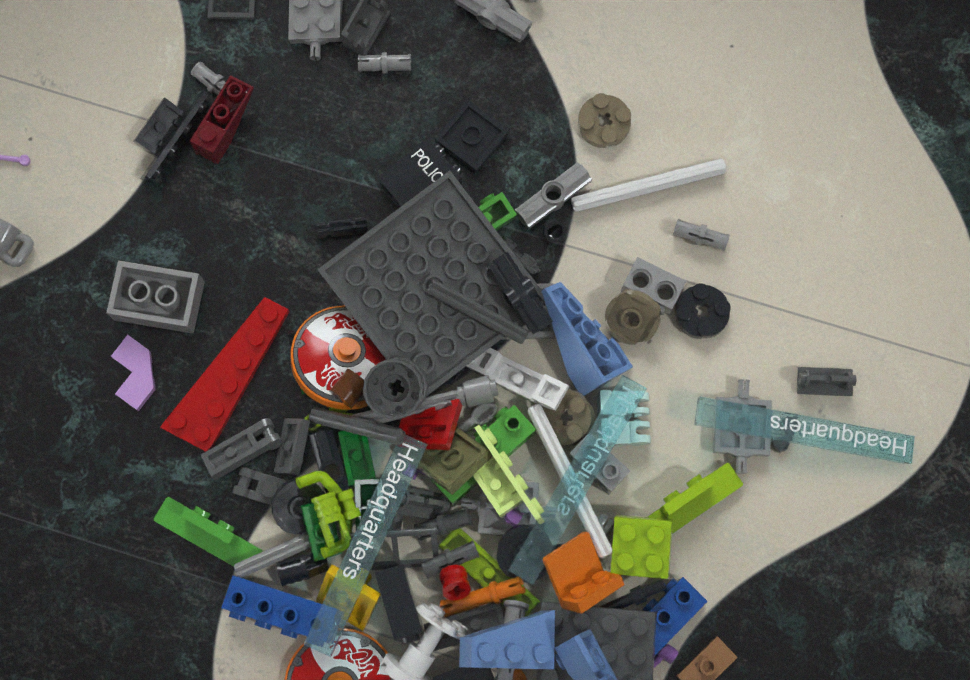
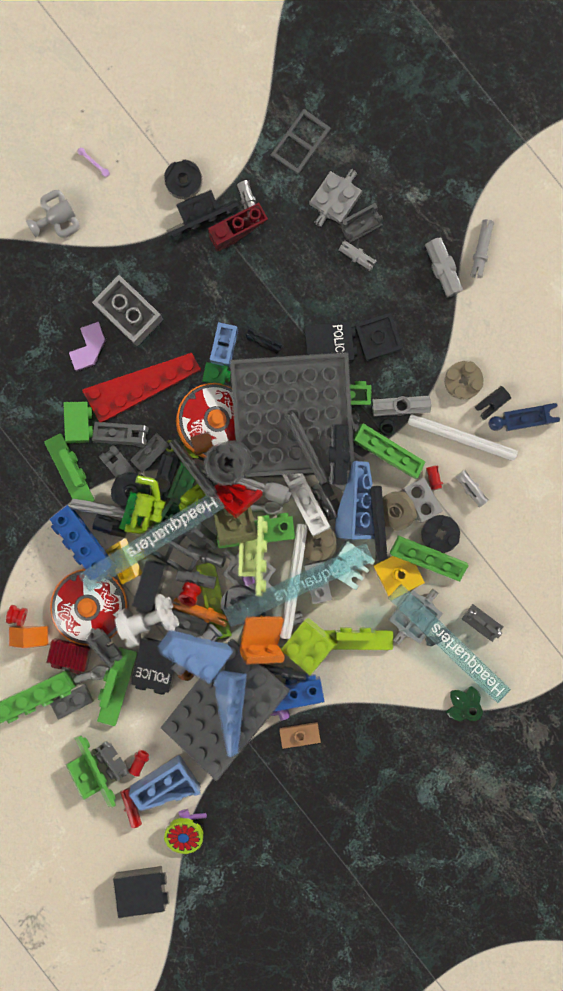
camera: 30 degrees right, 10 degrees up
(113, 98) = (181, 169): none -> black plate
(179, 469) = (76, 422): none -> bright green brick
(297, 261) = (224, 344): none -> medium blue brick
(310, 301) = (216, 373): none -> green bracket
(378, 460) = (191, 496): none -> lime hinge
(531, 356) = (322, 493): none -> dark grey hinge
(575, 255) = (388, 451): none -> bright green plate
(622, 346) = (379, 523): none -> black axle
(649, 251) = (434, 478): none -> red pin
(655, 119) = (495, 400): none -> black hinge
(682, 388) = (398, 571): none -> yellow tile
(704, 116) = (524, 418): none -> dark blue plate
(709, 347) = (429, 558): none -> bright green plate
(871, 492) = (462, 704): none -> dark green plate

